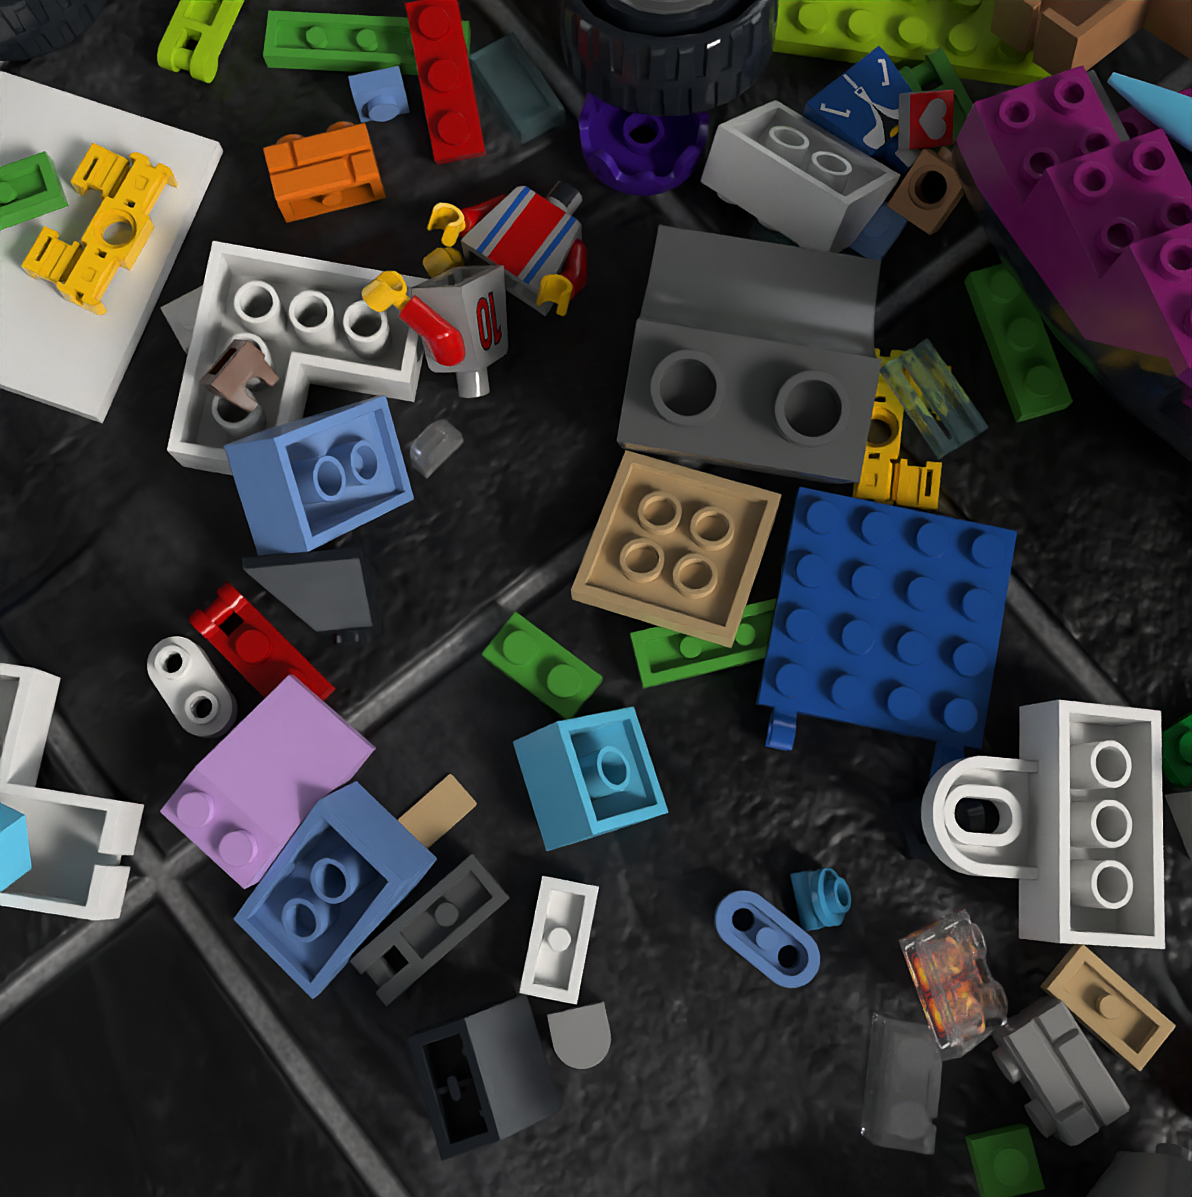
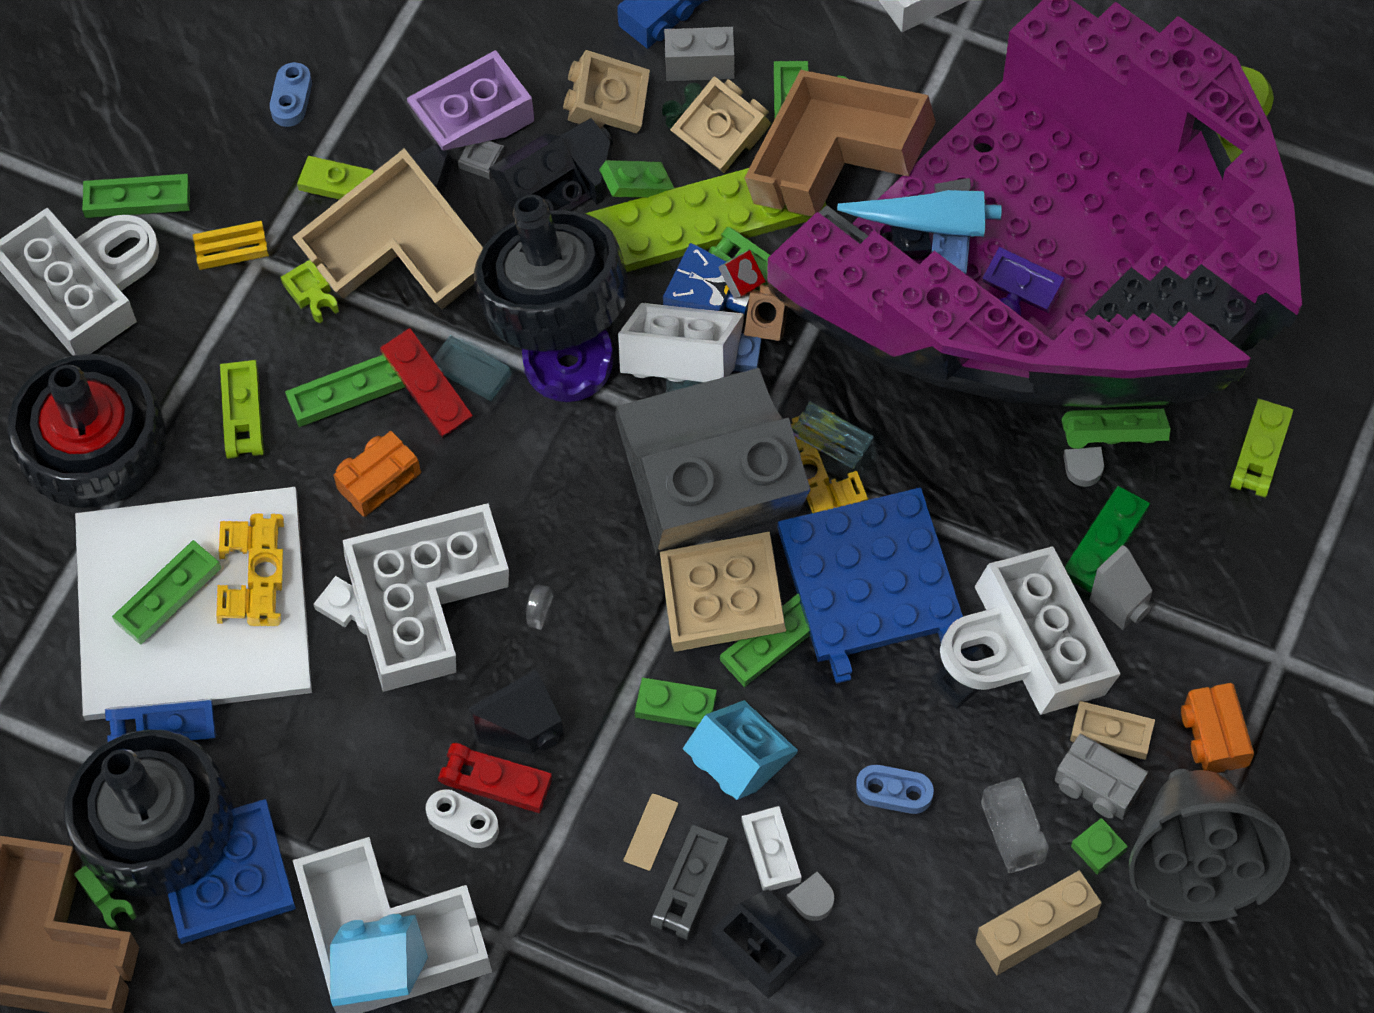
camera: 25 degrees left, 15 degrees down
(233, 370) = (402, 607): reddish brown tile -> none
(266, 780) = (546, 839): lavender slope -> none
(319, 476) = (484, 646): medium blue slope -> none
(333, 886) = (617, 886): medium blue slope -> none
(379, 94) = (386, 411): medium blue plate -> none
(454, 312) = (515, 515): torso -> none
(529, 237) = (530, 459): torso -> none
(820, 898) = (914, 751): dark azure plate -> none
(955, 983) = (1014, 753): clear tile -> none
(1017, 344) = (867, 381): bright green plate -> none

